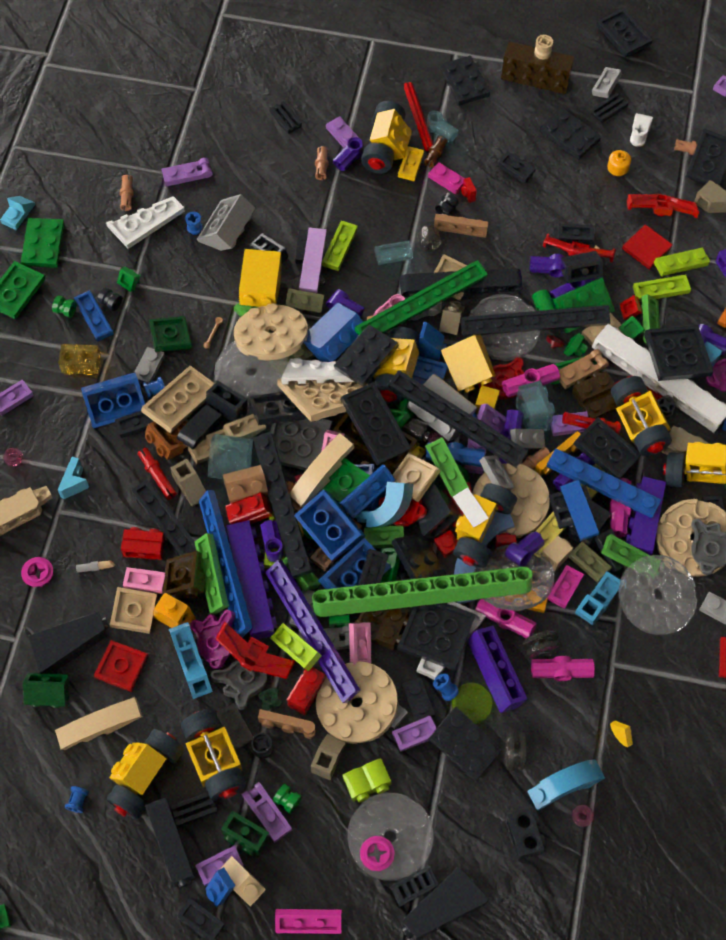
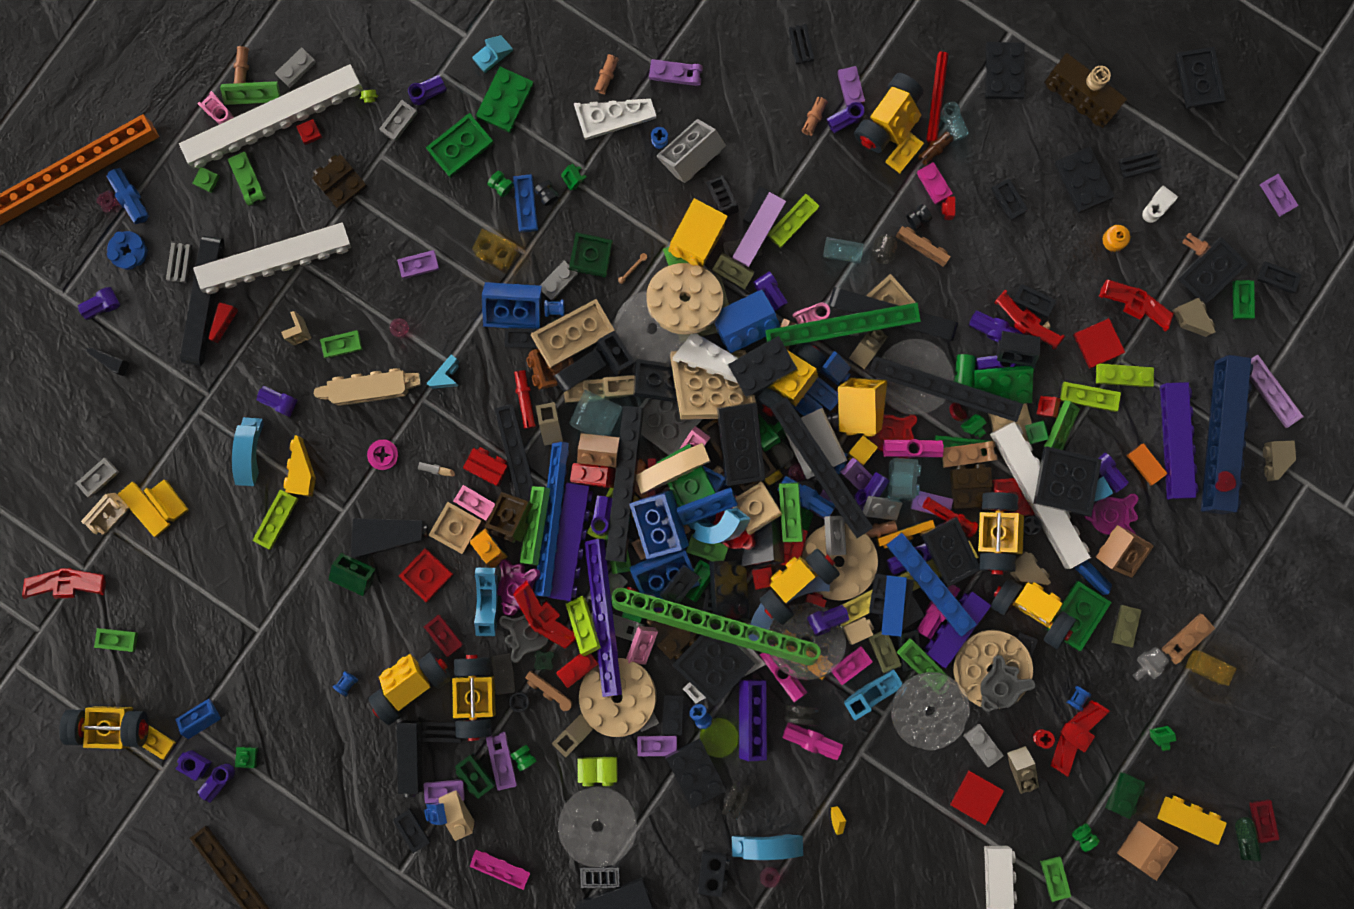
camera: 25 degrees right, 20 degrees up
(98, 723) = (387, 623): tan slope -> none
(161, 714) = (443, 635): none -> dark red plate
(383, 845) = (570, 844): dark pink gear -> none
(470, 507) = (790, 570): white sticker -> none
(606, 82) = (1151, 133): light grey plate -> none

